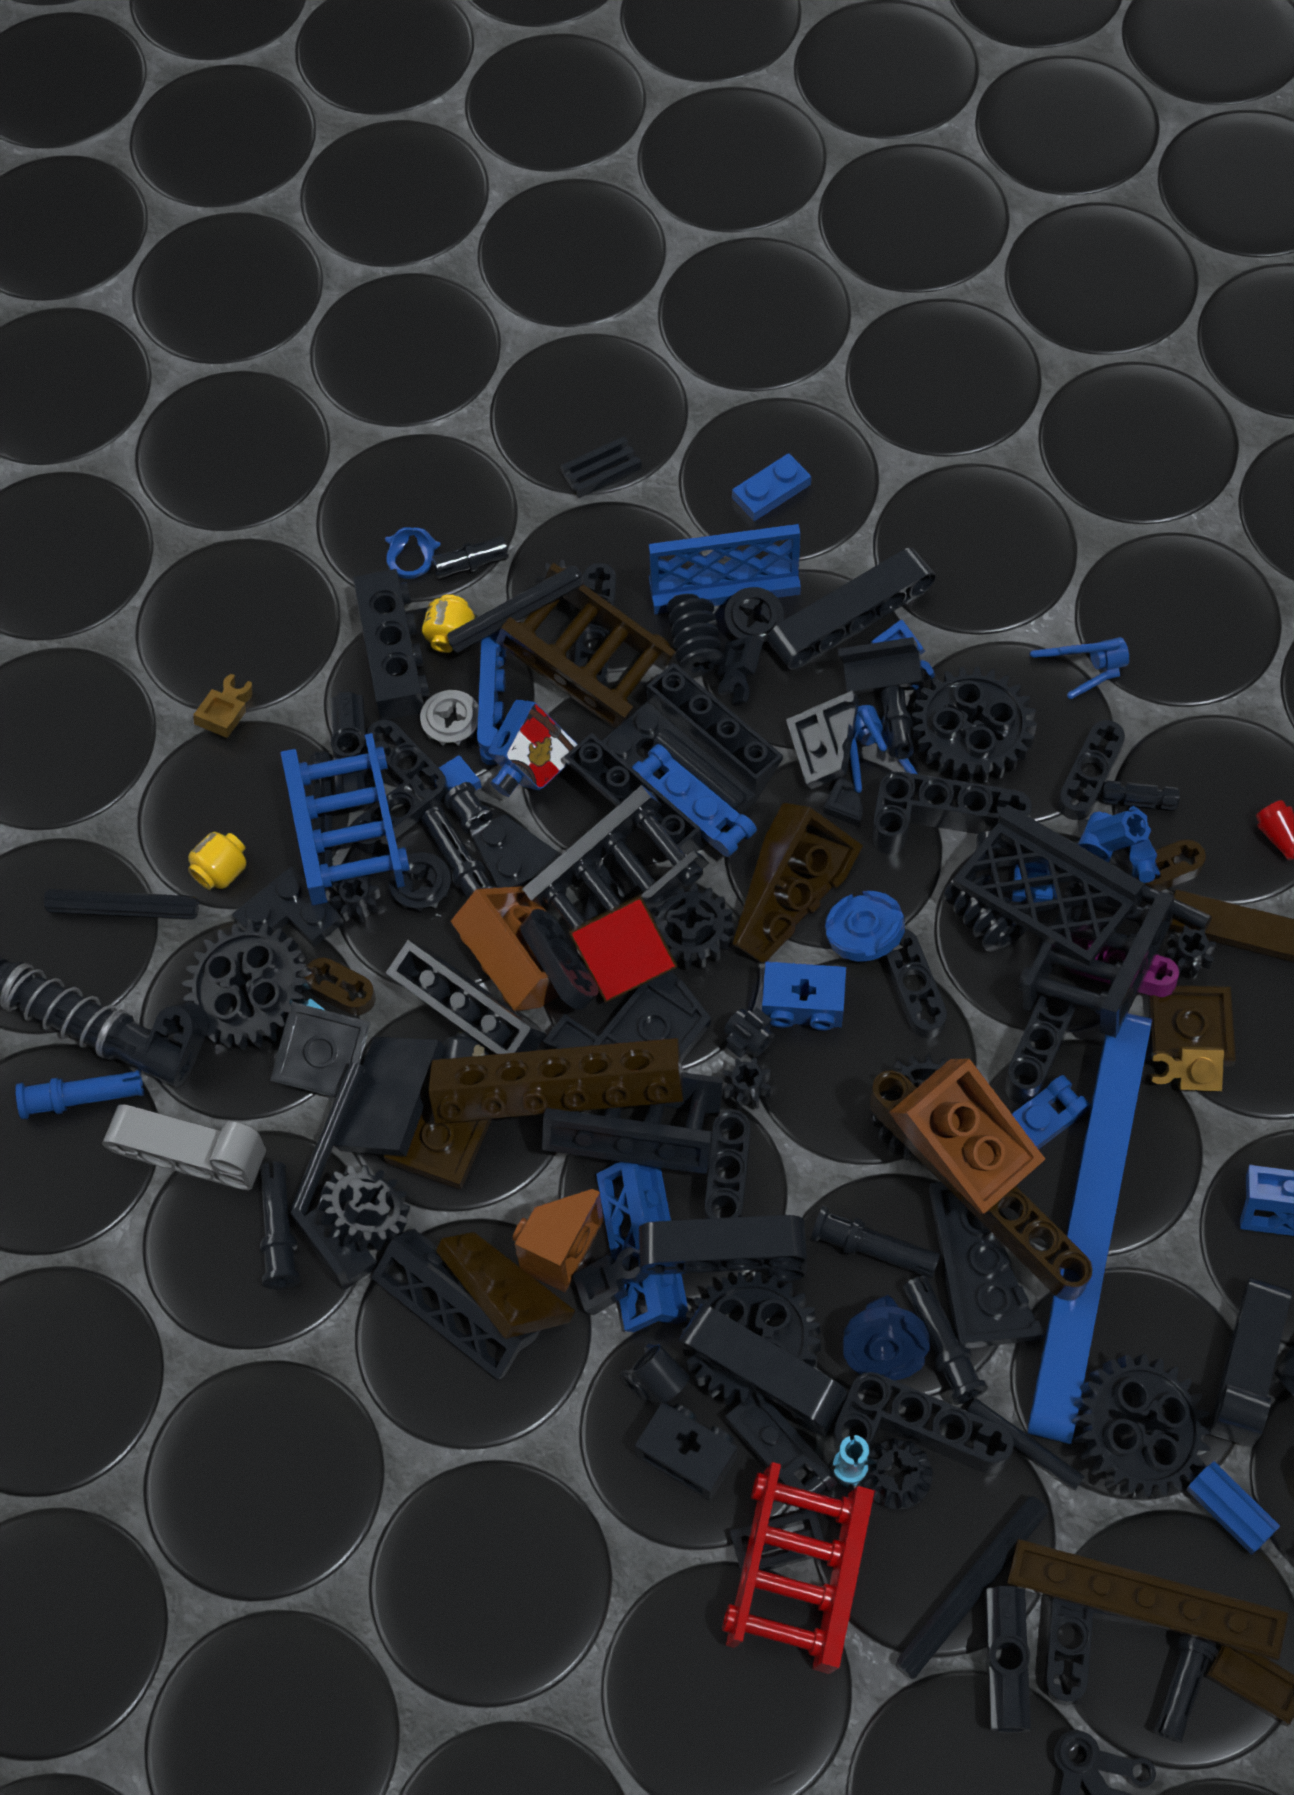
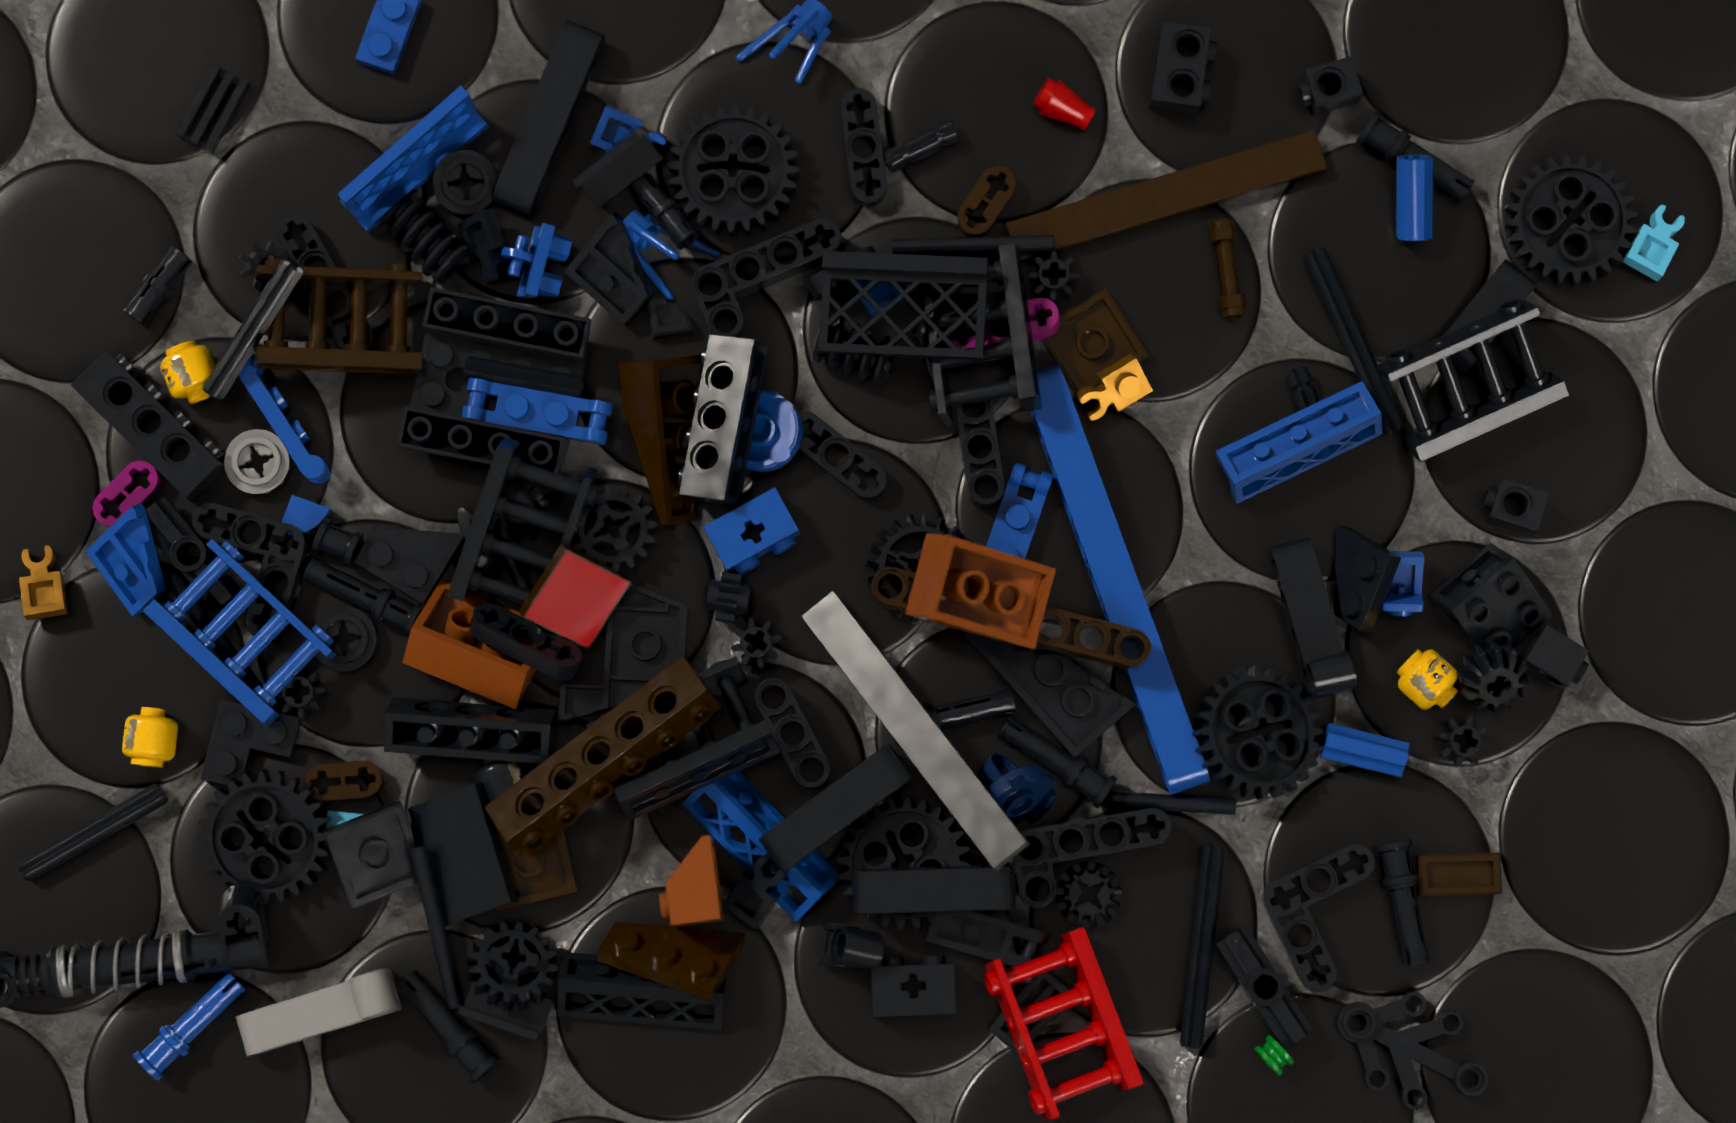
camera: 35 degrees left, 20 degrees up
(302, 721) = (129, 560): none -> blue wing
(335, 680) = (121, 485): none -> magenta beam
(397, 544) = (76, 313): blue piece -> none
(528, 748) = (357, 456): torso -> none
(785, 693) = (543, 245): none -> blue hips
(835, 1232) = (915, 731): none -> tile
(838, 894) = (733, 439): none -> brick
(851, 1461) = (1044, 920): medium azure pin -> none
(978, 1729) = (1274, 1055): none -> green bush
(1114, 832) = (920, 209): blue piece -> none
(1143, 860) = (960, 212): blue piece -> none
(1148, 1599) = (1343, 872): dark brown tile -> none

